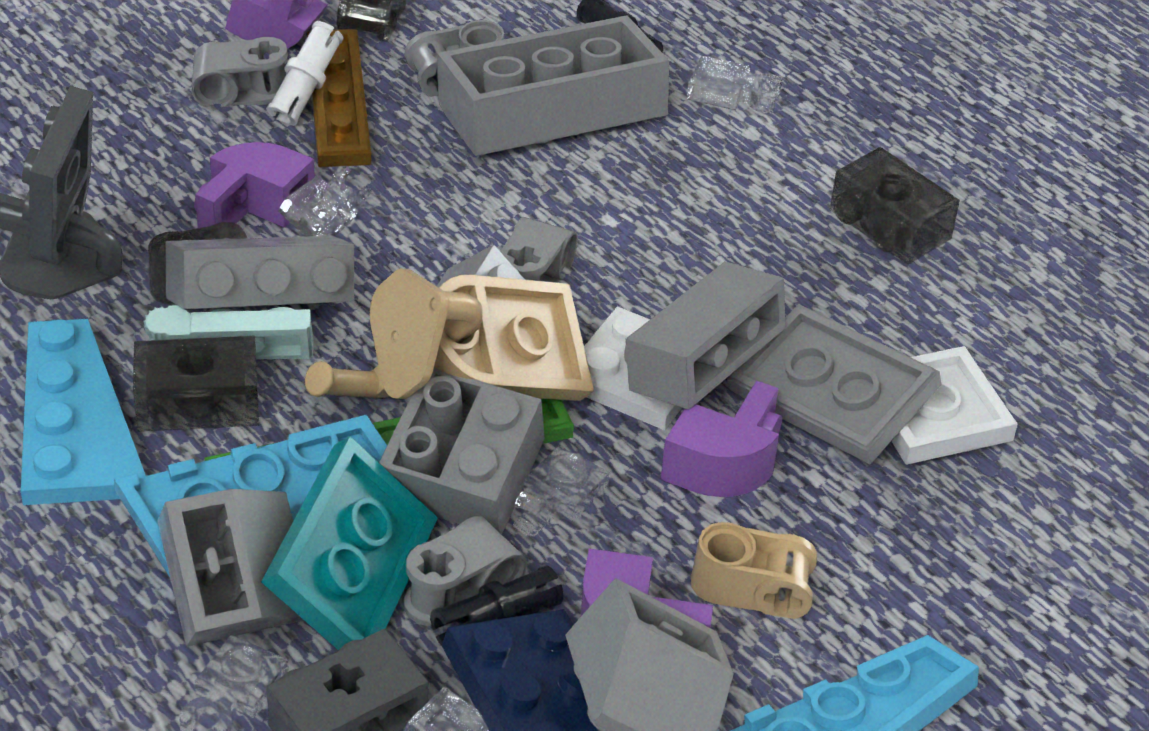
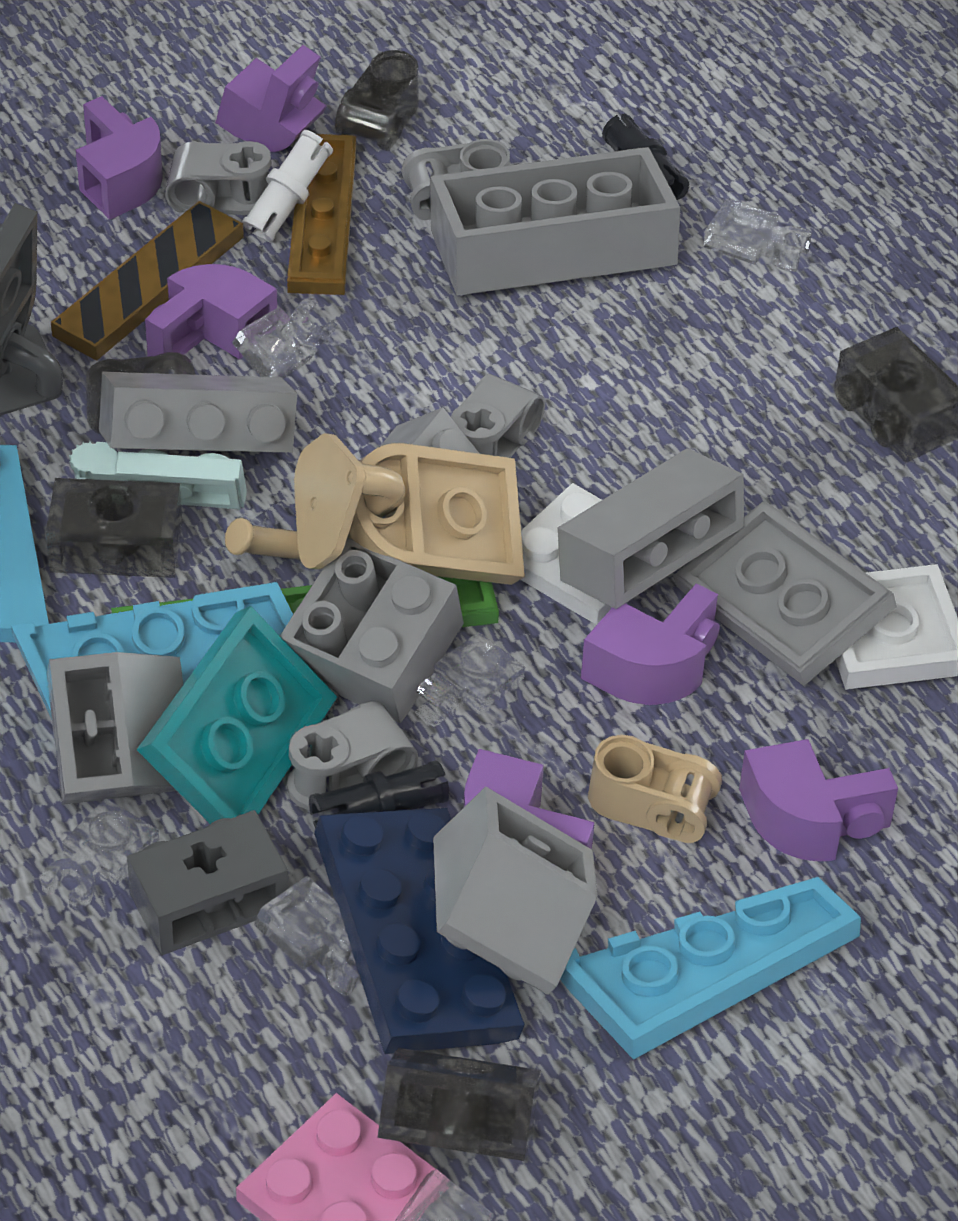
camera: 10 degrees right, 5 degrees up
(142, 64) = (121, 159): none -> medium lavender brick
(183, 167) = (141, 283): none -> pearl gold tile
(897, 575) = (805, 812): none -> medium lavender brick

